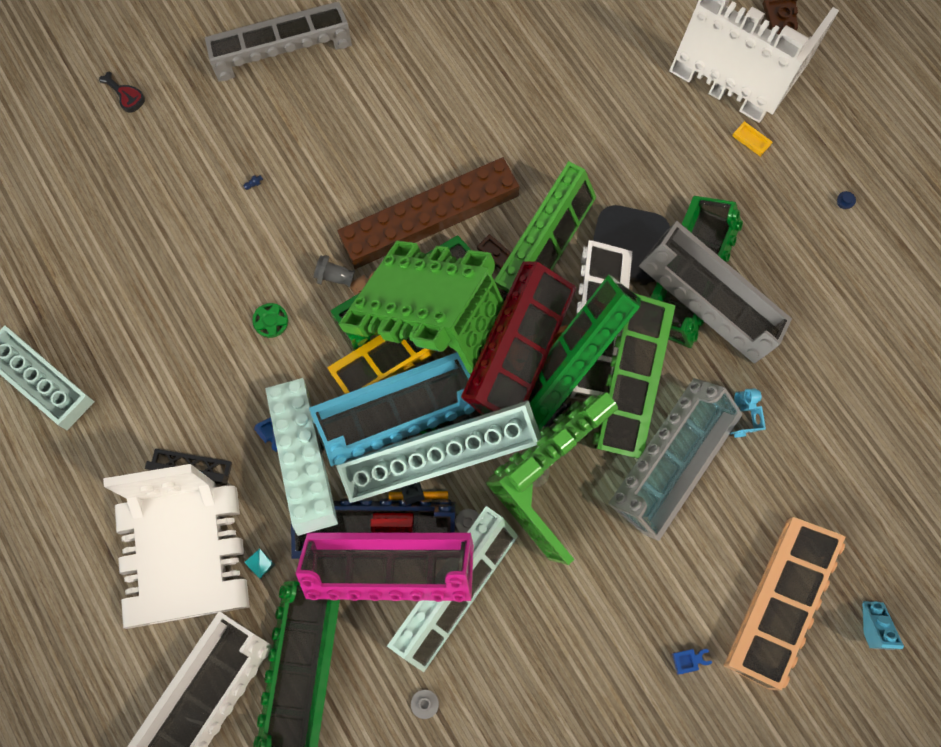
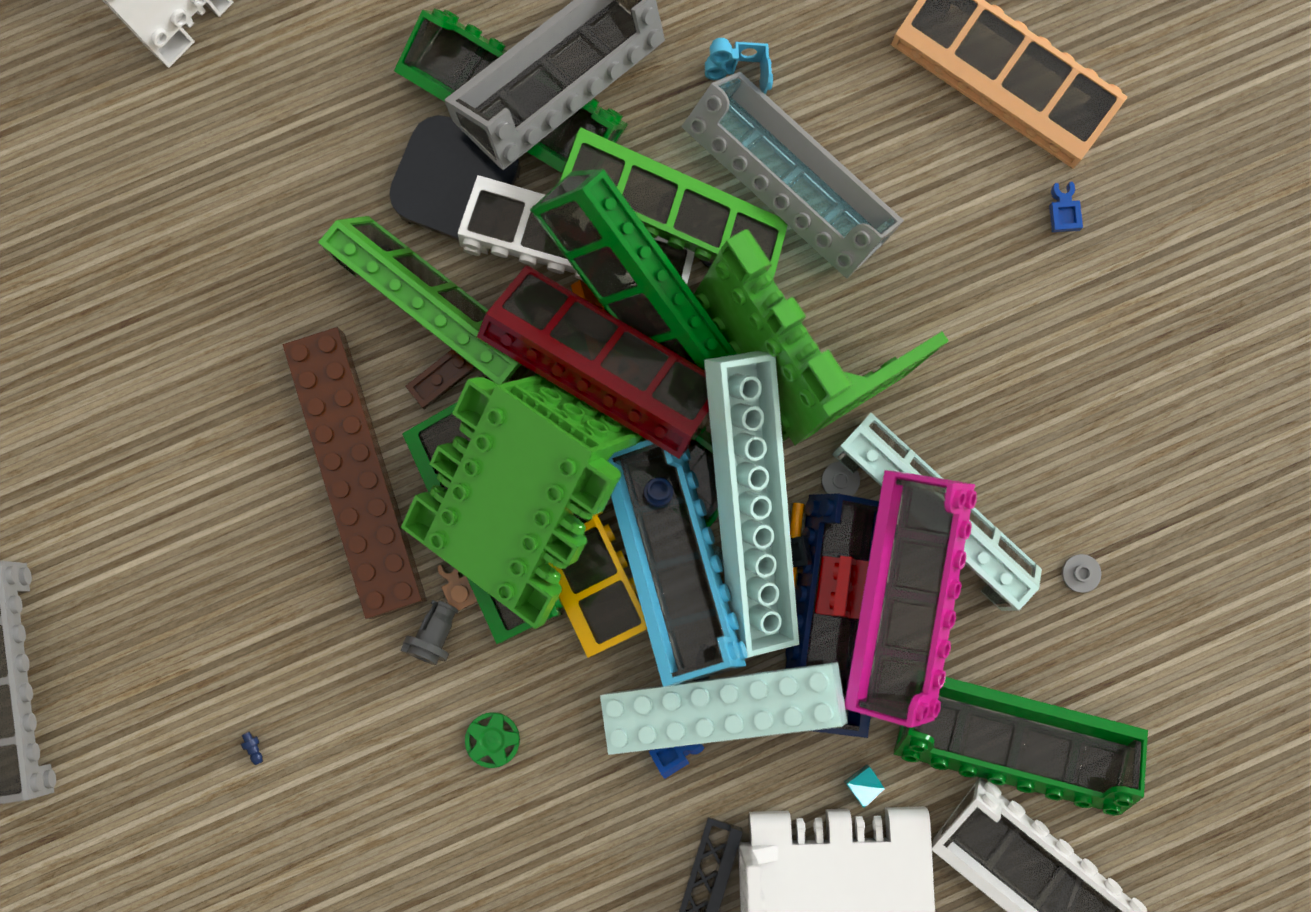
camera: 80 degrees left, 10 degrees up
(439, 393) = (658, 492): none -> dark blue plate

